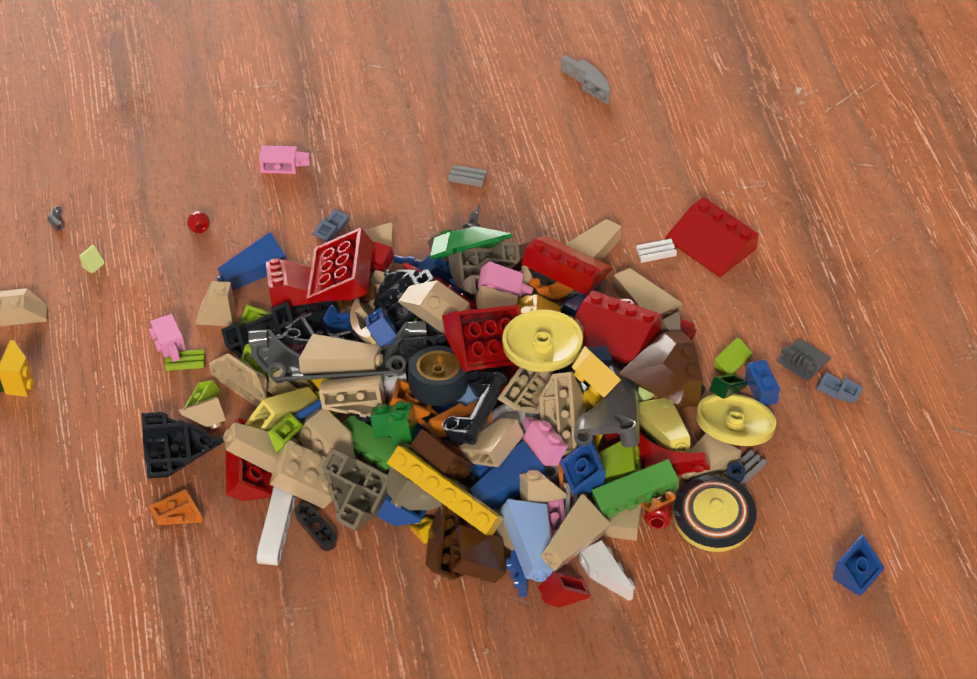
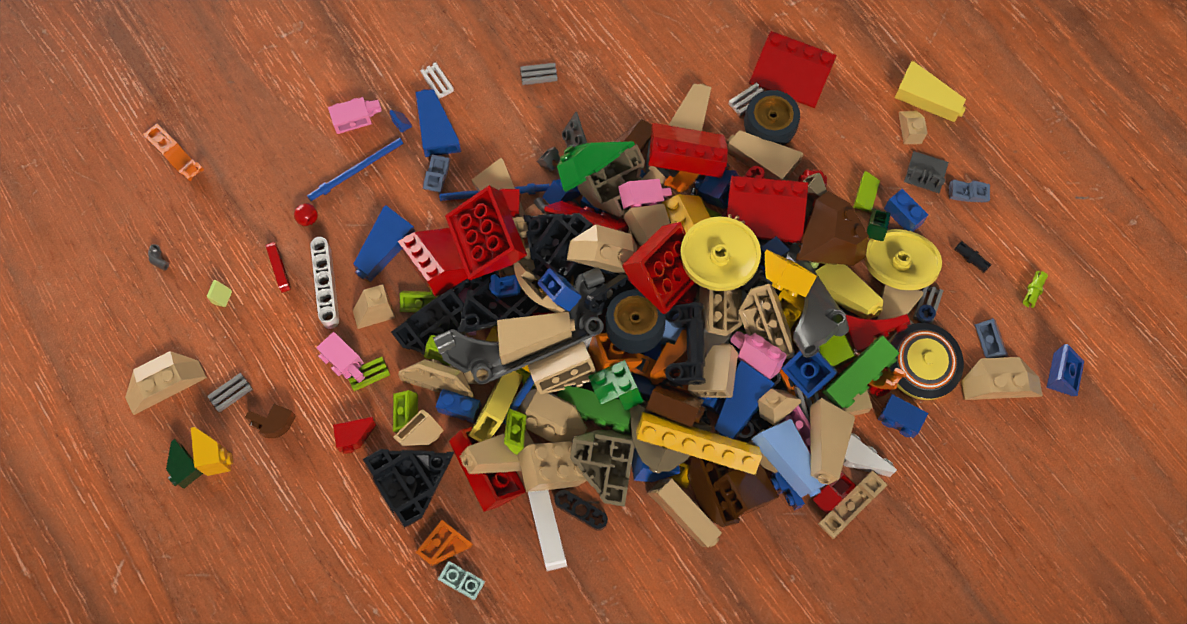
camera: 25 degrees left, 20 degrees up
(57, 336) = (238, 378): none -> light grey tile
(82, 370) = (275, 424): none -> reddish brown brick
(112, 144) = (173, 152): none -> orange piece
(146, 398) = (353, 434): none -> red slope
(152, 255) = (278, 267): none -> red beam
(176, 544) = (461, 580): none -> light aqua slope
(185, 278) = (327, 290): none -> white beam
(227, 209) = (325, 188): none -> blue bar
(243, 402) = (458, 406): none -> blue brick
(321, 176) = (400, 120): none -> blue slope
(348, 188) = (435, 127): none -> blue slope
(371, 146) = (435, 67): none -> white tile
(409, 555) = (685, 512): none -> tan slope
(576, 609) = (852, 504): none -> tan slope
(666, 550) = (902, 416): none -> blue brick
(669, 267) = (772, 117): none -> wheel
(787, 554) = (1001, 379): none -> tan wedge
(796, 519) = (991, 339): none -> sand blue slope
(807, 319) = (912, 127): none -> tan slope
(813, 443) = (972, 256): none -> black pin
(840, 294) = (930, 93): none -> light yellow slope
(863, 489) = (1035, 289): none -> lime pin

